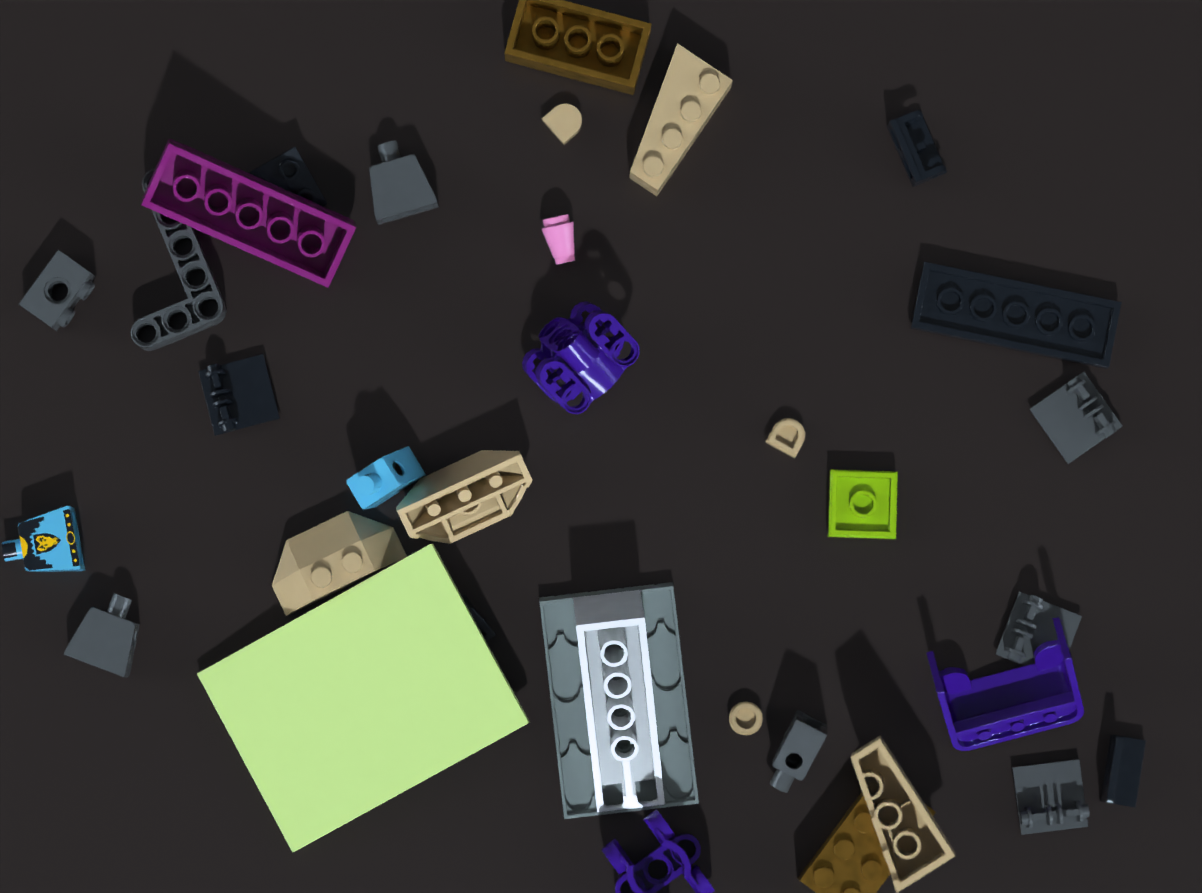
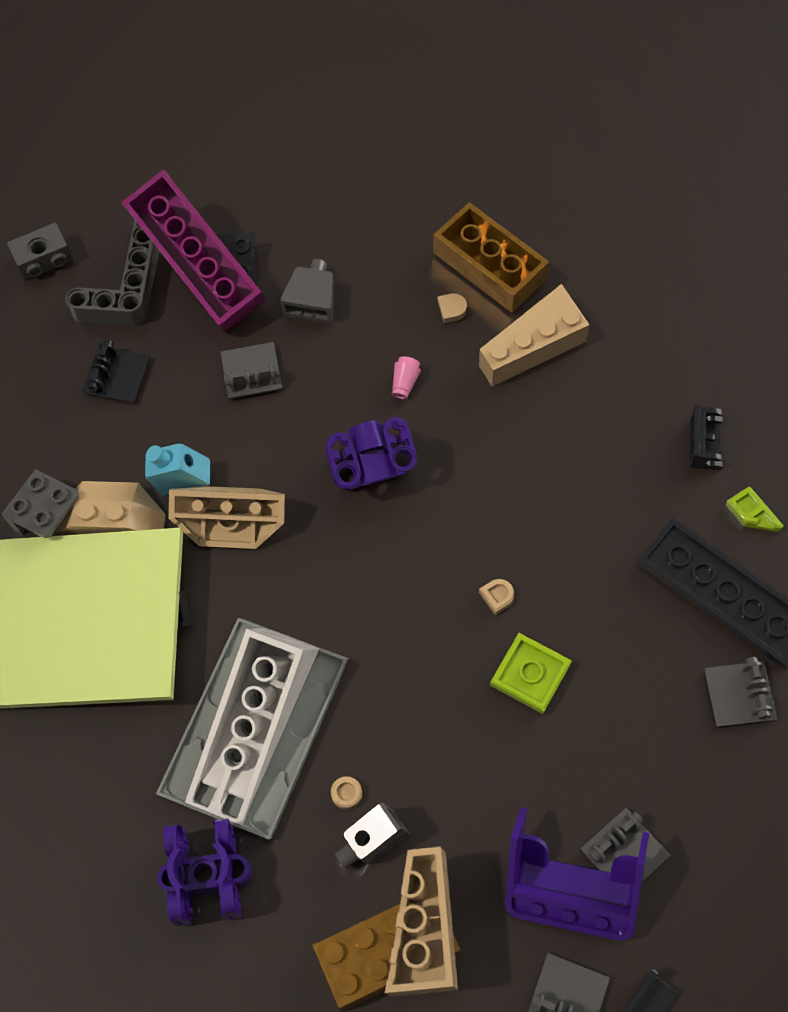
camera: 35 degrees right, 20 degrees down
(266, 592) = (40, 505): none -> dark grey bracket
(386, 313) = (251, 370): none -> dark grey hinge
(1000, 207) = (753, 512): none -> lime tile

